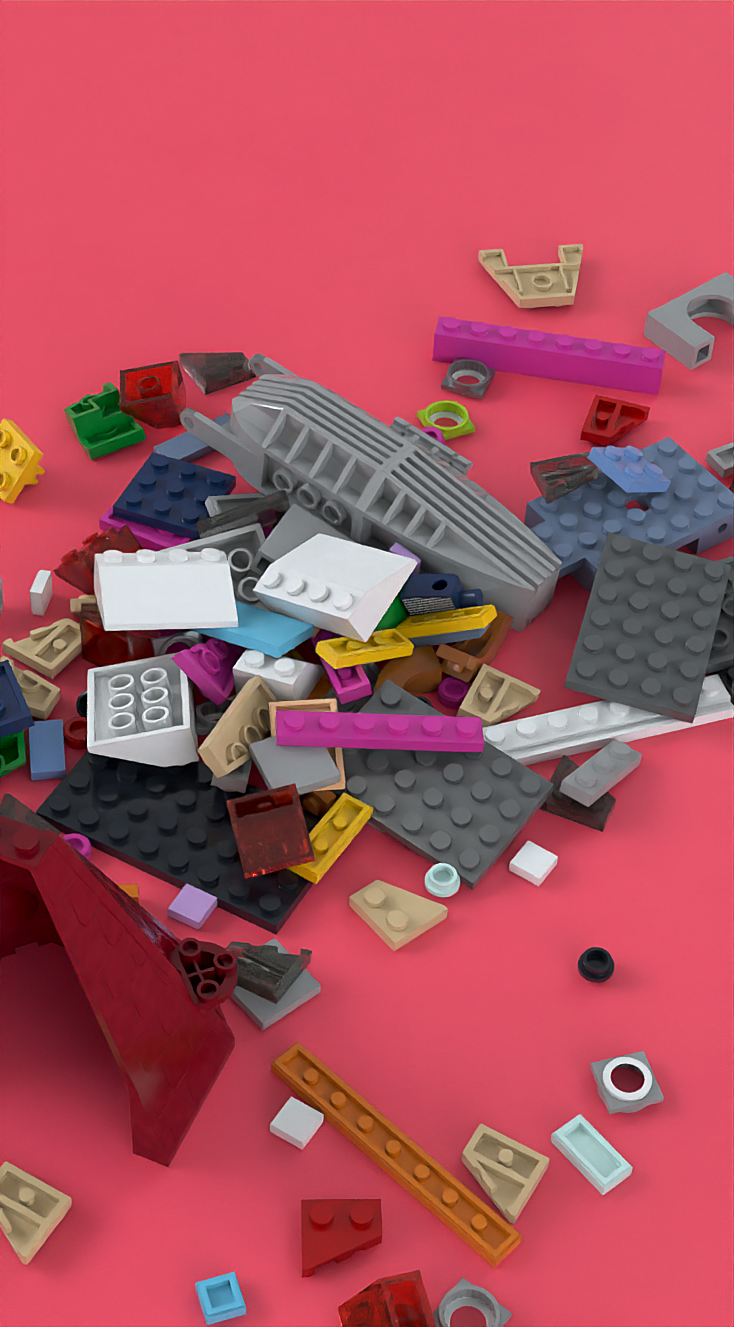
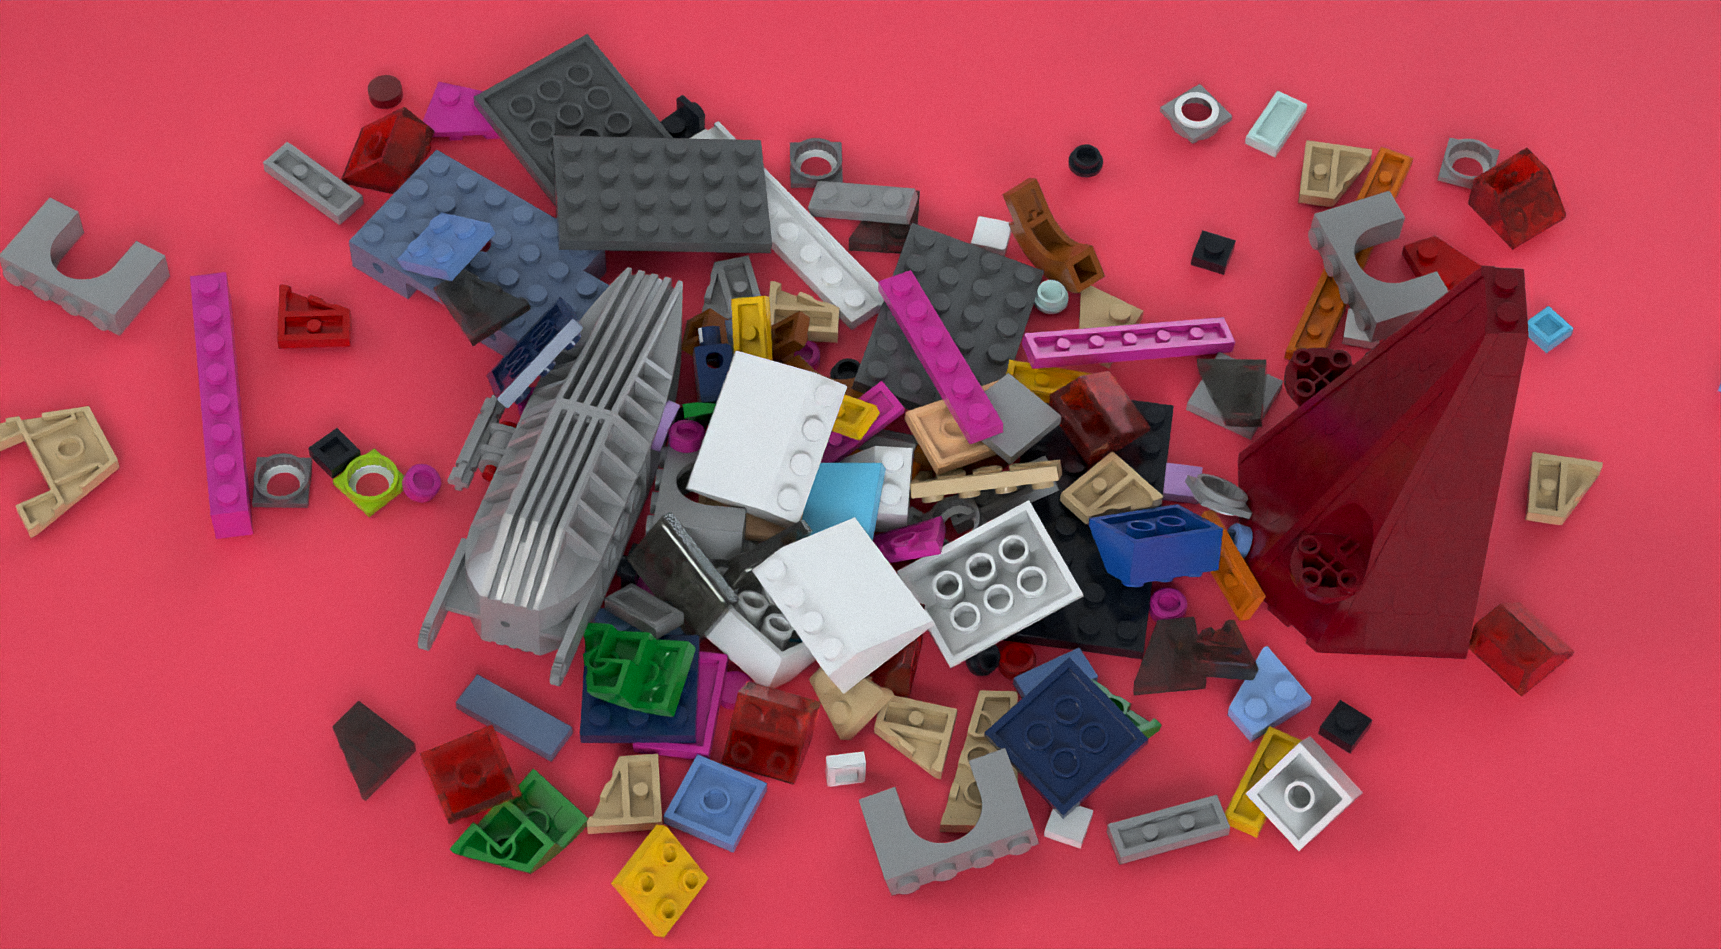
camera: 110 degrees left, 10 degrees up
(59, 518) = (715, 803): none -> medium blue plate
(93, 478) = (630, 798): none -> tan wing
(126, 831) = (1157, 544): none -> blue slope
(173, 899) = (1219, 495): none -> light grey piece
(182, 477) = (636, 668): none -> green slope
(196, 827) = (1109, 490): none -> tan wing
(237, 561) = (741, 565): none -> clear smoke wing
(351, 904) = (1127, 342): none -> dark pink plate
(396, 1120) = (1376, 305): none -> light grey arch
(445, 1032) = (1213, 252): none -> black plate
(479, 404) = (333, 452): none -> black plate
(492, 483) = (535, 353): none -> dark blue plate
(497, 895) = (1046, 243): none -> dark orange arch
(535, 661) = (728, 281): none -> light grey wing
(670, 750) = (815, 148): none -> flat silver piece

